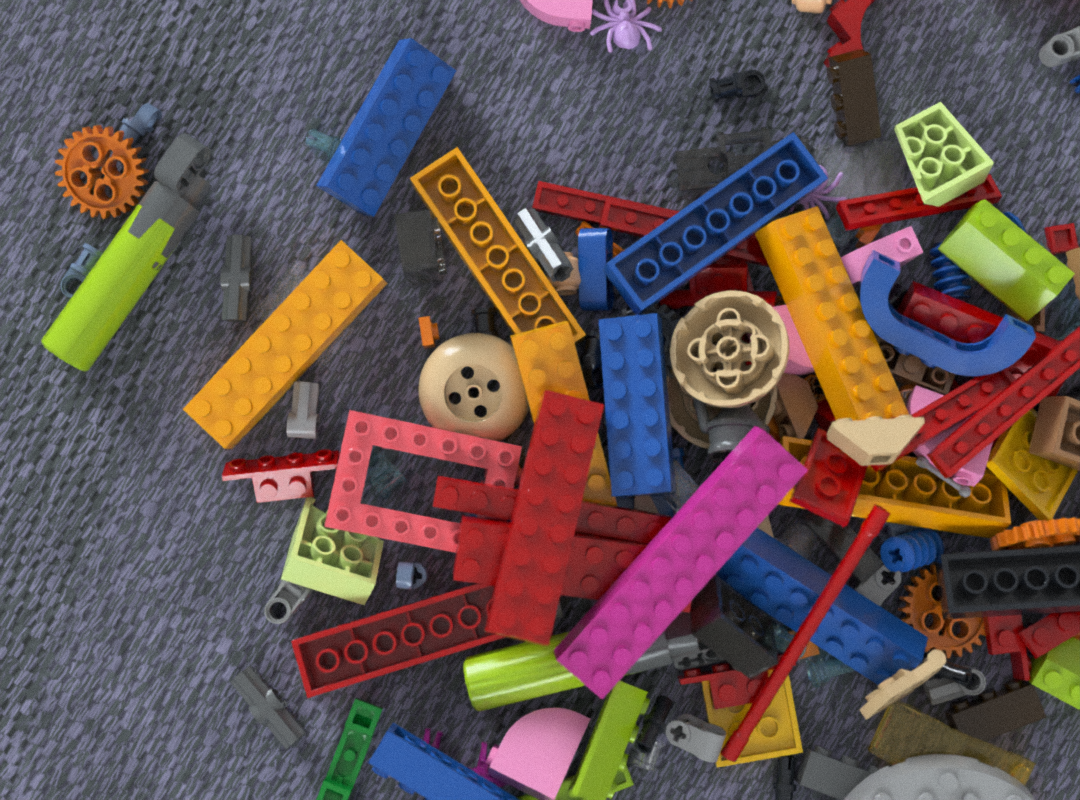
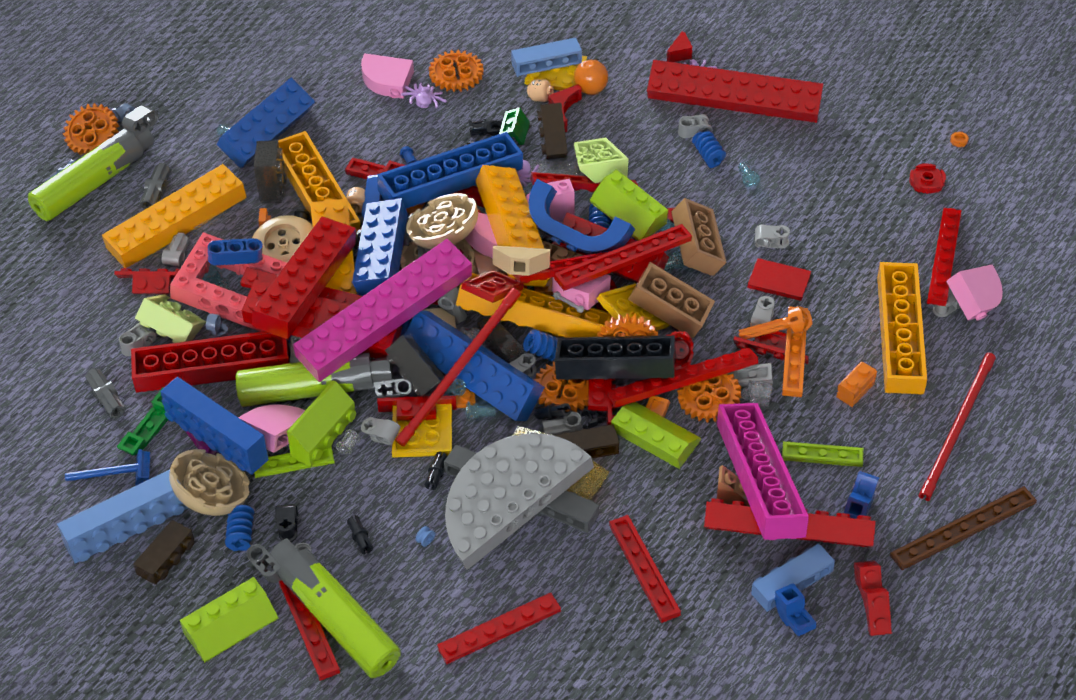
camera: 15 degrees right, 35 degrees down
(427, 449) = (235, 251): none -> blue beam
(543, 245) = (346, 180): dark grey piece -> none
(626, 164) = (407, 153): none -> blue pin
(653, 724) = (352, 422): black pin -> none
(782, 79) = (516, 125): none -> green panel
(902, 684) = (510, 403): tan plate -> none
(995, 664) = (594, 421): none -> black piece

